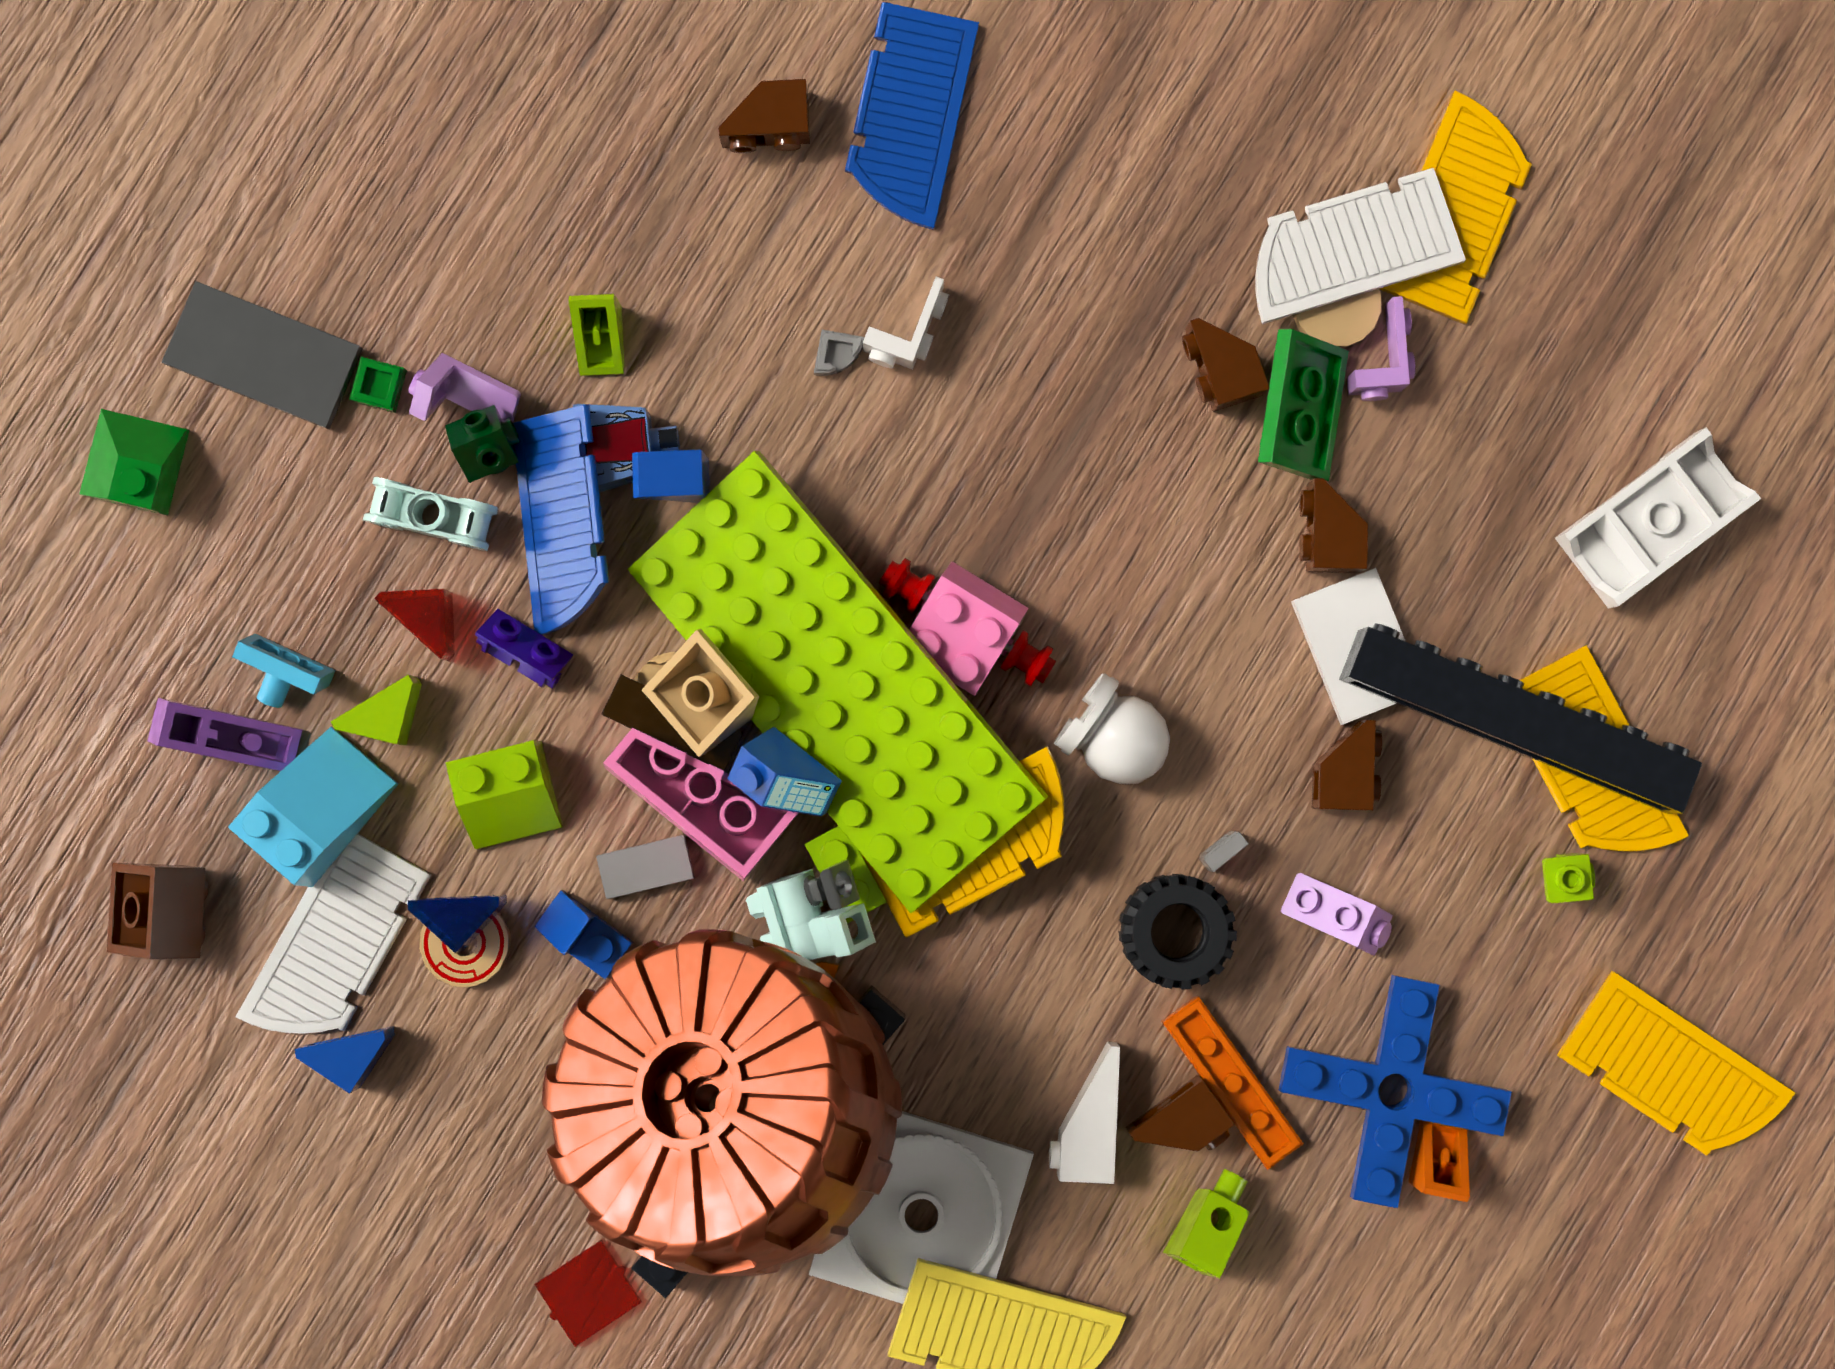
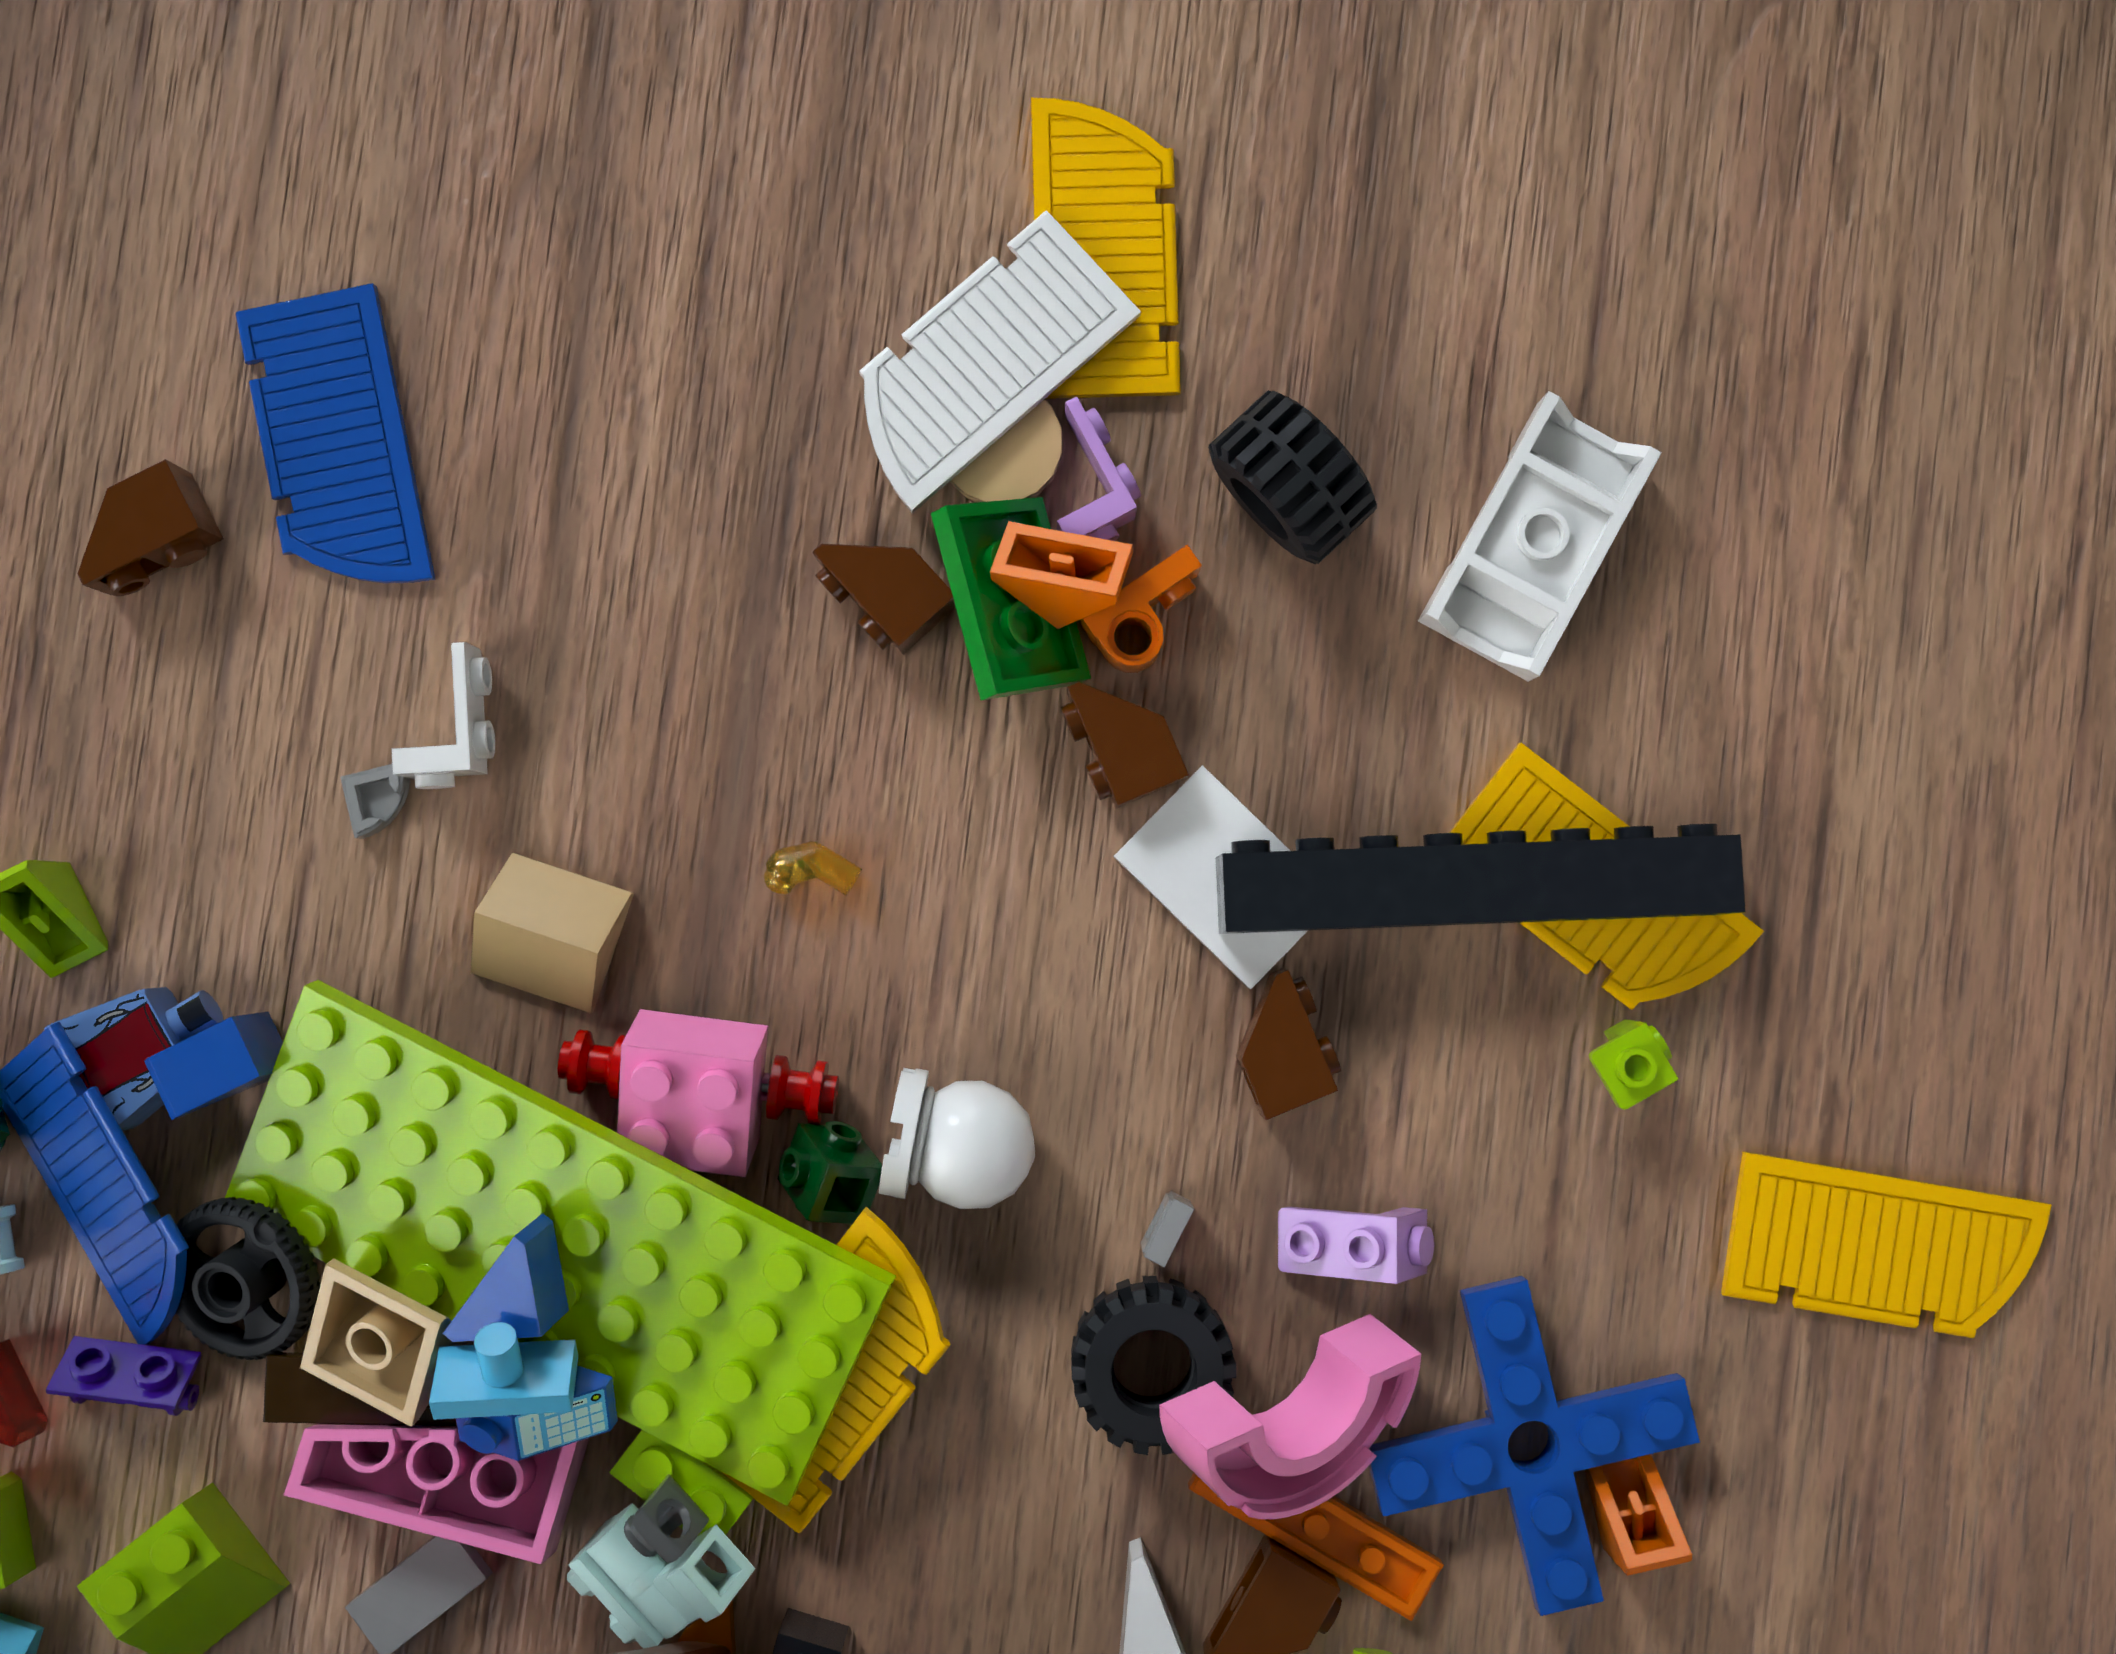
camera: 20 degrees left, 0 degrees up
(655, 599) = (244, 1279): none -> black wheel
(780, 747) = (503, 1376): none -> medium azure tile
(809, 700) = (519, 1289): none -> blue slope
(910, 488) = (548, 931): none -> tan slope
(1027, 717) = (830, 1172): none -> dark green brick
(1096, 517) = (809, 861): none -> clear yellow arm
(1257, 1022) = (1311, 1440): none -> bright pink brick
(1343, 404) = (1060, 572): none -> orange slope
(1378, 447) = (1164, 583): none -> orange plate
(1518, 409) = (1293, 476): none -> black tyre

